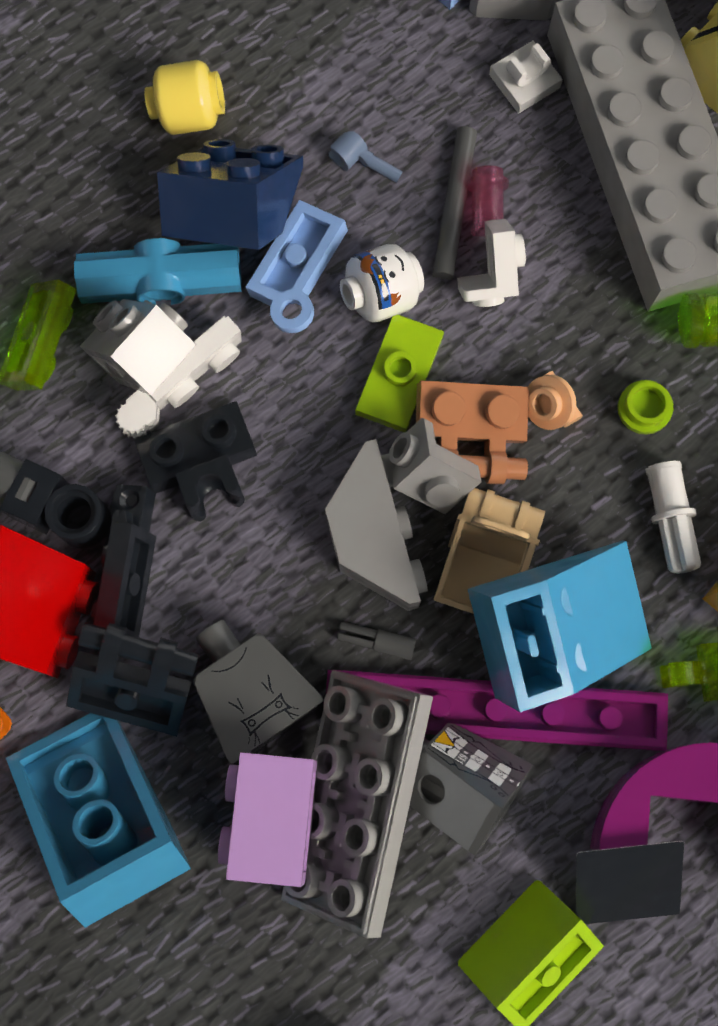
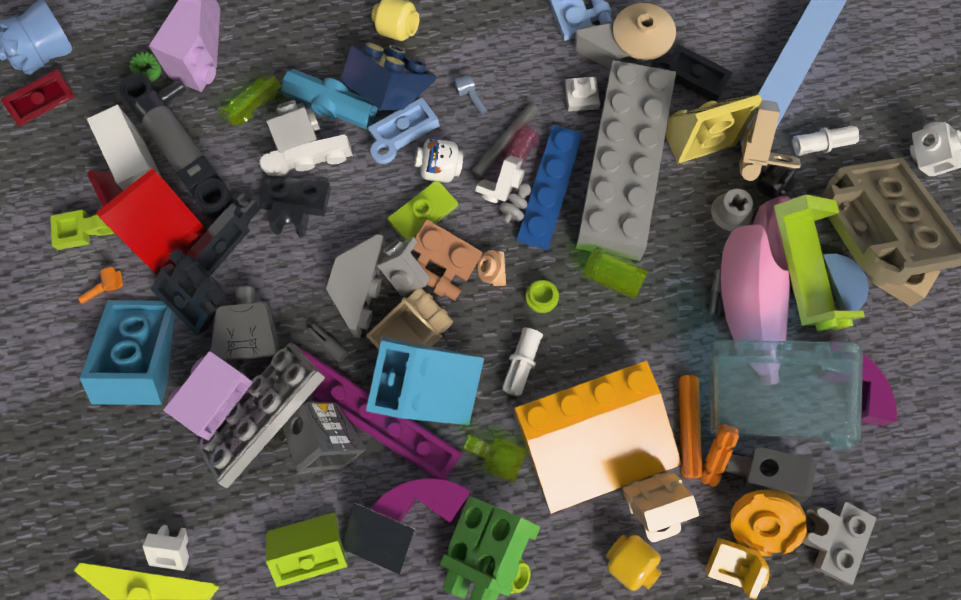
camera: 30 degrees right, 5 degrees down
(531, 286) = (517, 201): none -> light grey hair
(562, 240) = (550, 187): none -> blue plate

